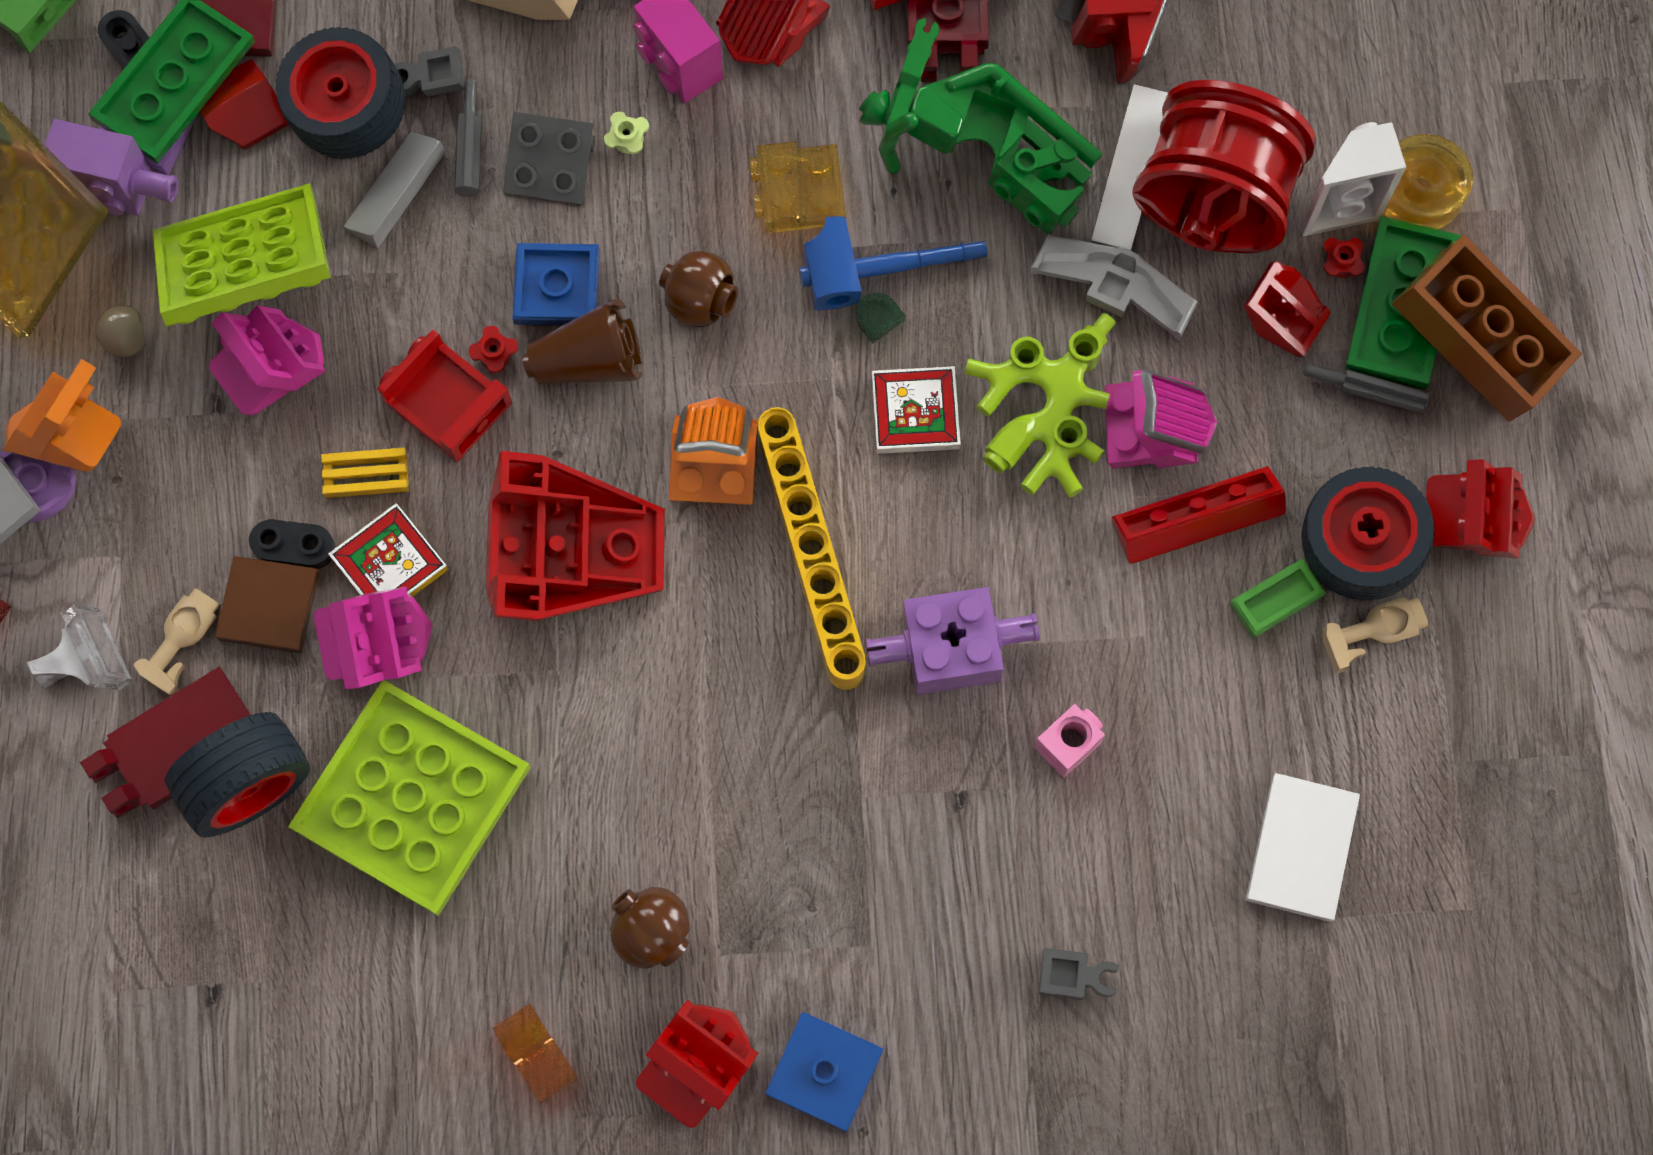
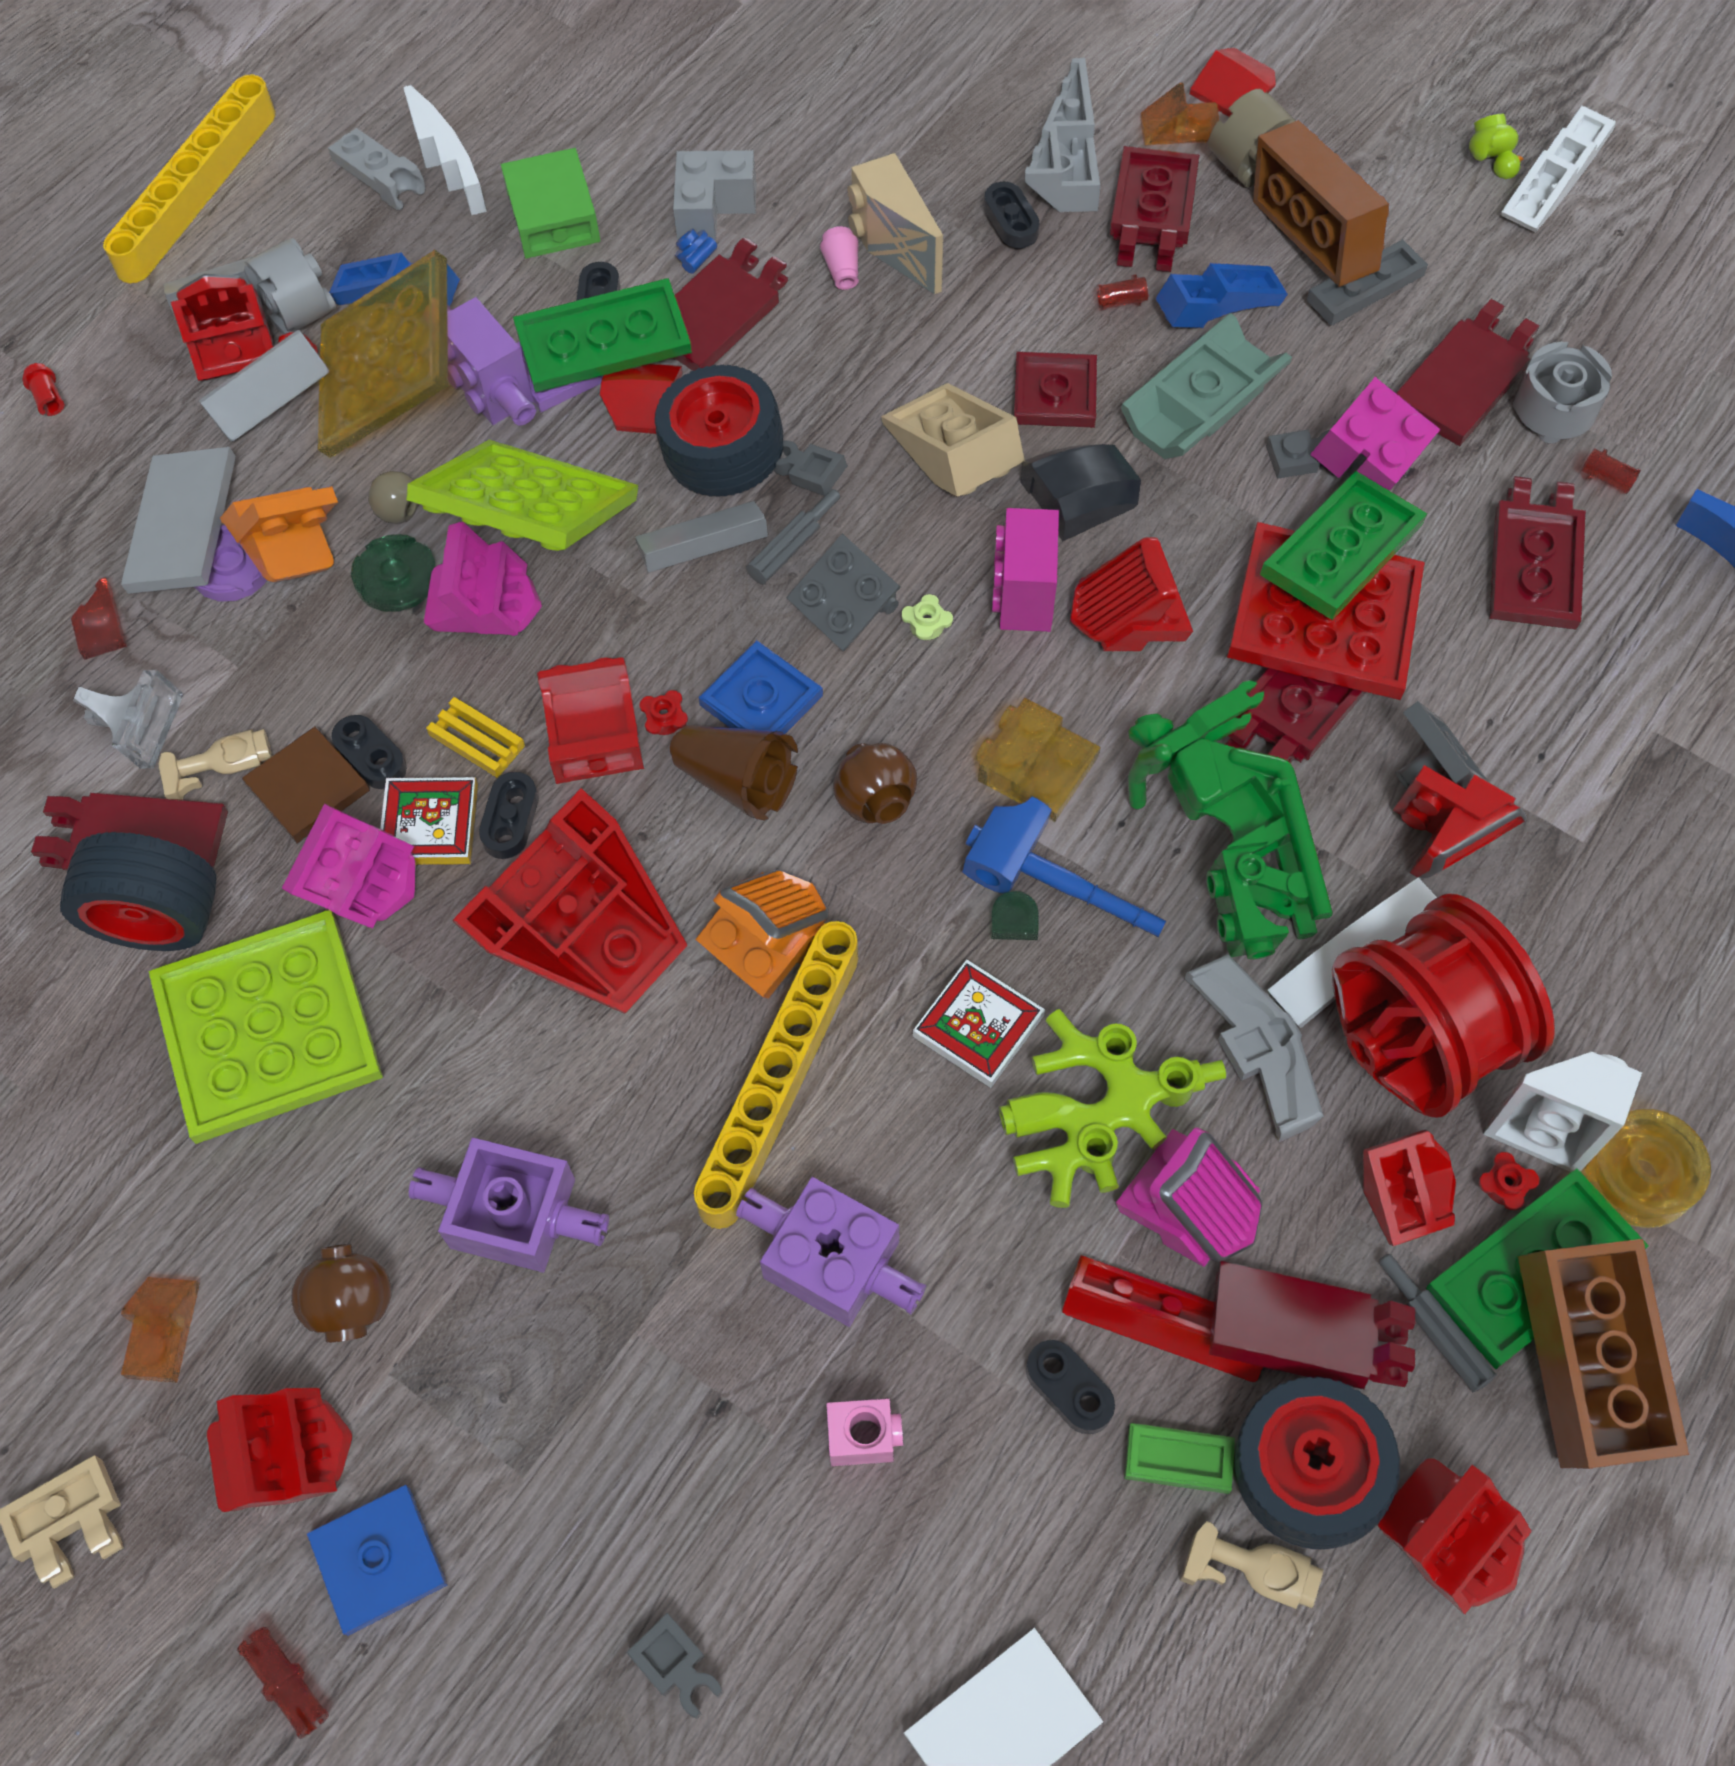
camera: 40 degrees right, 10 degrees down
(176, 392) = (393, 573): none -> clear green tile
(450, 513) = (508, 818): none -> black plate
(682, 787) = (494, 1178): none -> medium lavender brick
(1175, 607) = (1069, 1385): none -> black plate
(1294, 451) = (1309, 1328): none -> dark red tile

